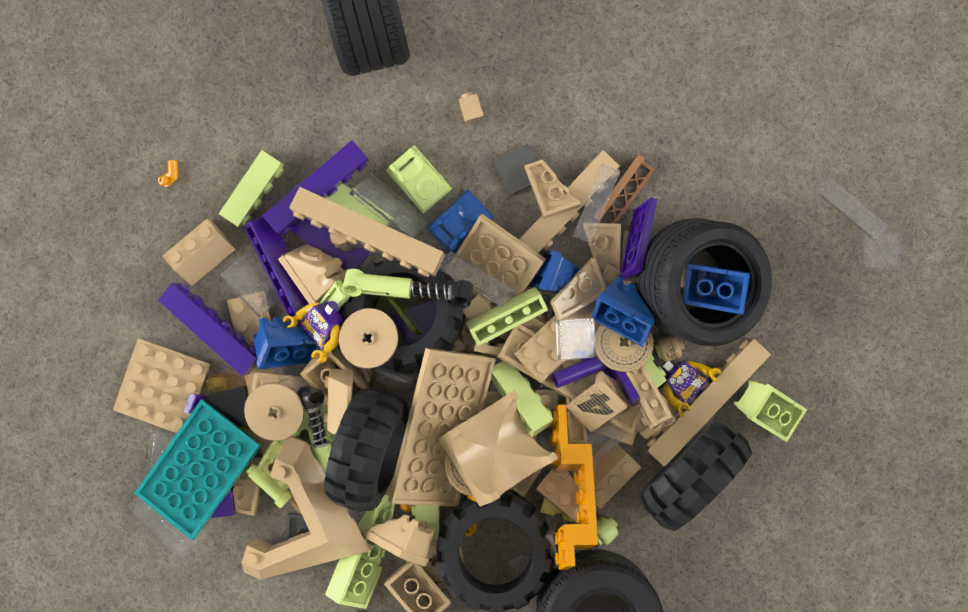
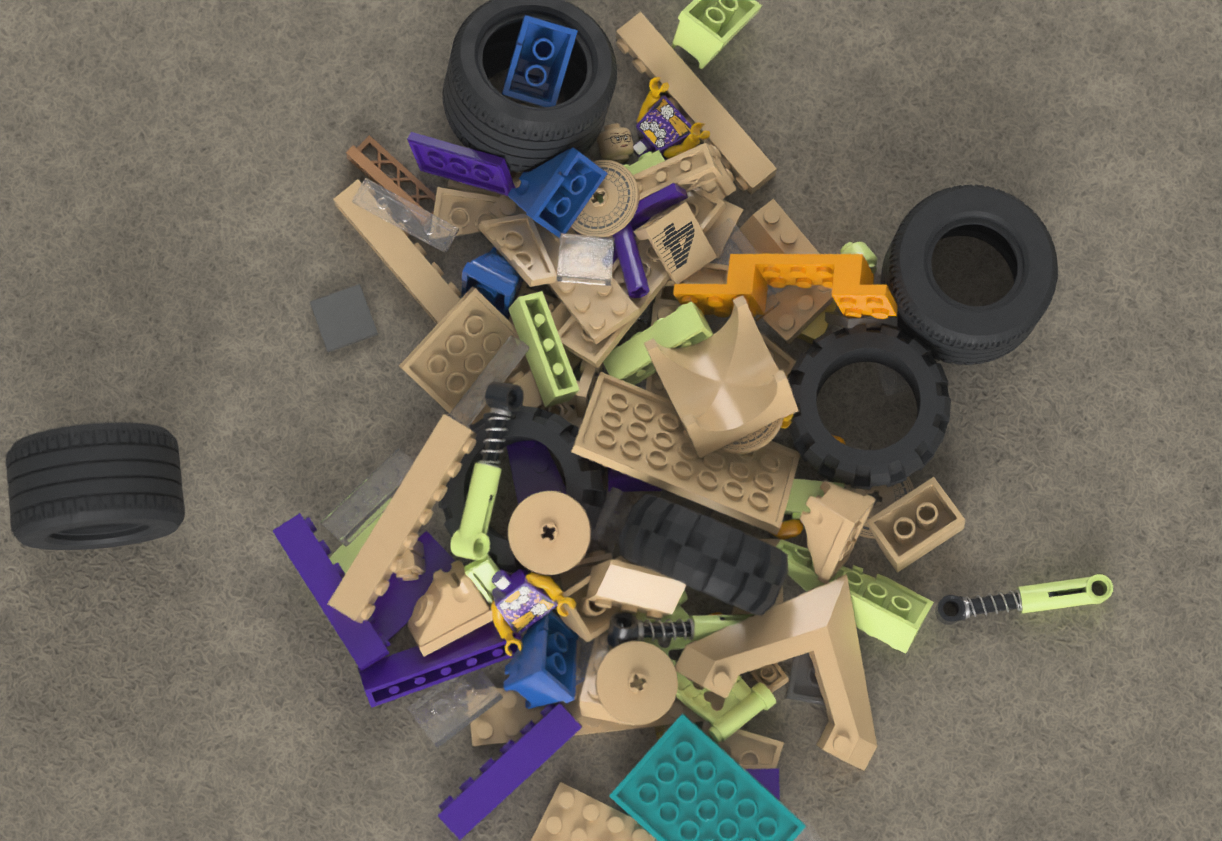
camera: 85 degrees left, 10 degrees down
(171, 176) = (283, 805): light orange arm -> none
(192, 402) = (612, 809): tile -> none
(199, 252) = (399, 775): tan slope -> none
(219, 382) = (588, 771): clear yellow brick -> none
(231, 404) = (622, 753): black tile -> none
(251, 189) = (319, 689): yellowish green brick -> none
(405, 315) = (522, 491): clear neon green piece -> none
(418, 179) = (338, 456): yellowish green piece -> none
(457, 221) = (404, 408): blue piece -> none
(470, 107) = (249, 371): tan brick -> none
(549, 191) = (379, 277): tan wing -> none
(696, 475) = (786, 121): black tyre -> none

